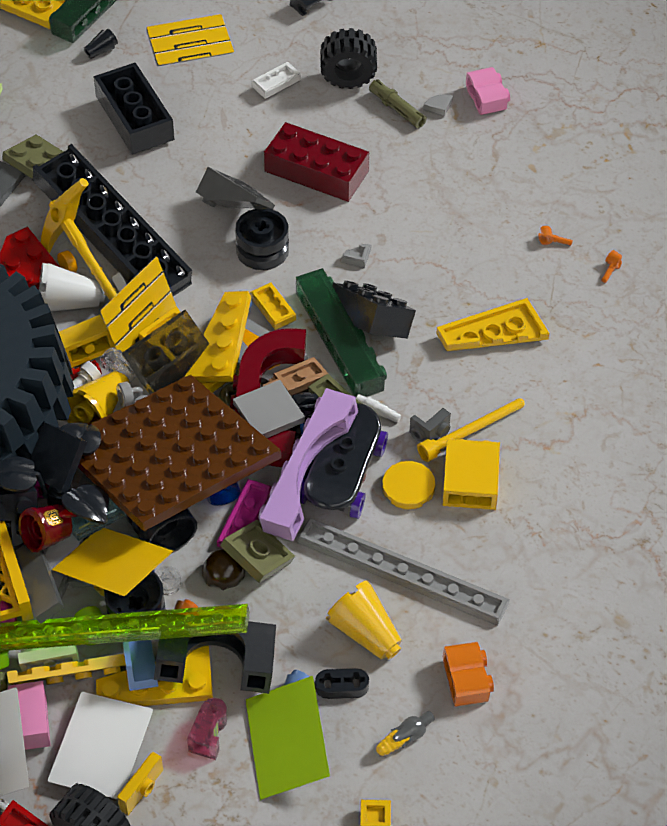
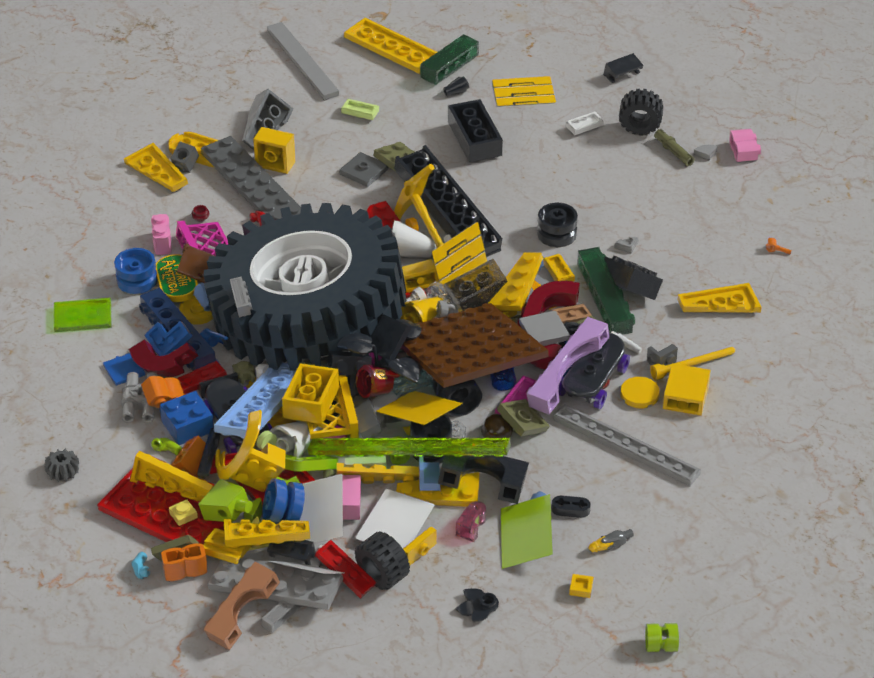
camera: 10 degrees right, 10 degrees down
(230, 192) = (536, 191): dark grey wedge -> none
(316, 161) = (606, 179): dark red brick -> none
(366, 621) = (593, 467): yellow cone -> none
(466, 673) = (661, 509): orange brick -> none
(615, 262) = (820, 267): orange hand -> none

